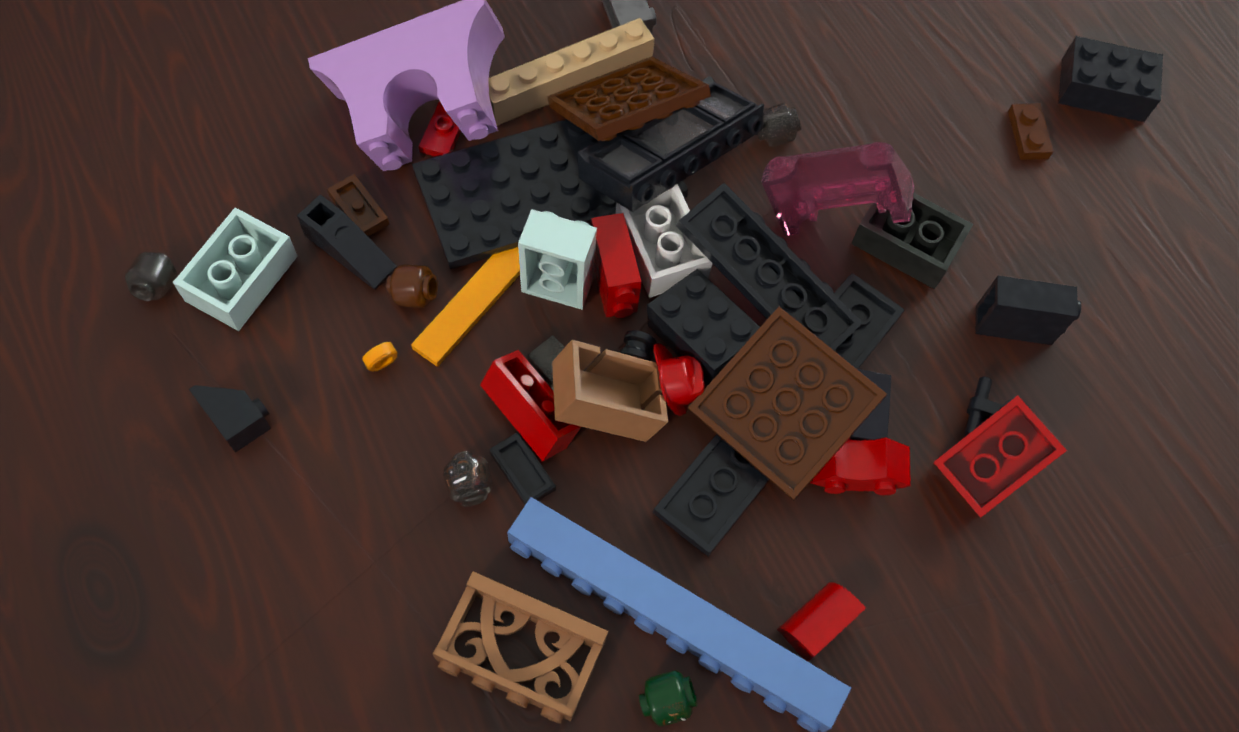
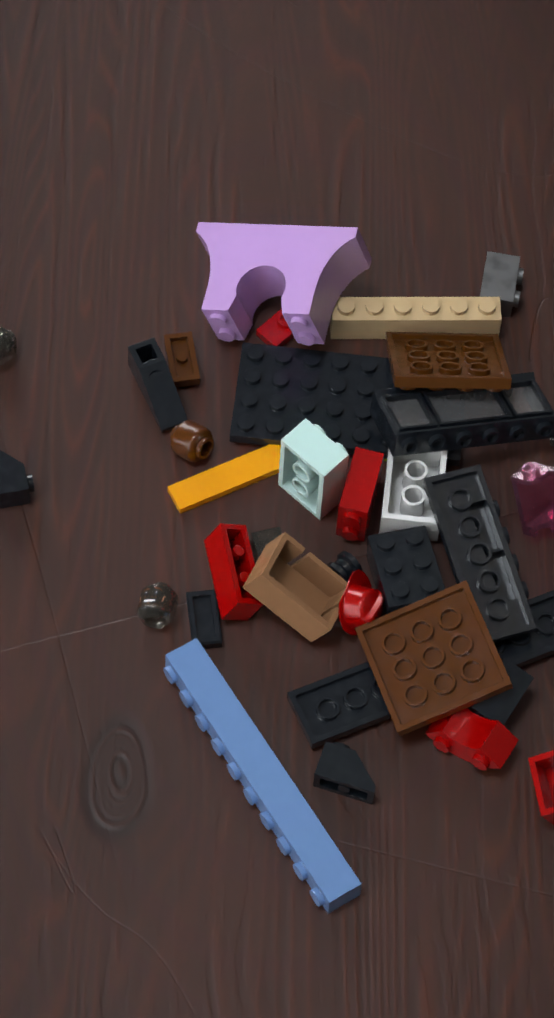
camera: 30 degrees right, 5 degrees down
(236, 269) = (62, 369): light aqua brick -> none
(380, 356) = (138, 485): light orange tile -> none
(500, 599) = (163, 731): medium nougat fence -> none
(668, 698) = (222, 828): dark green head -> none
(757, 567) = (343, 773): none -> black slope
(821, 620) = (372, 835): red brick -> none

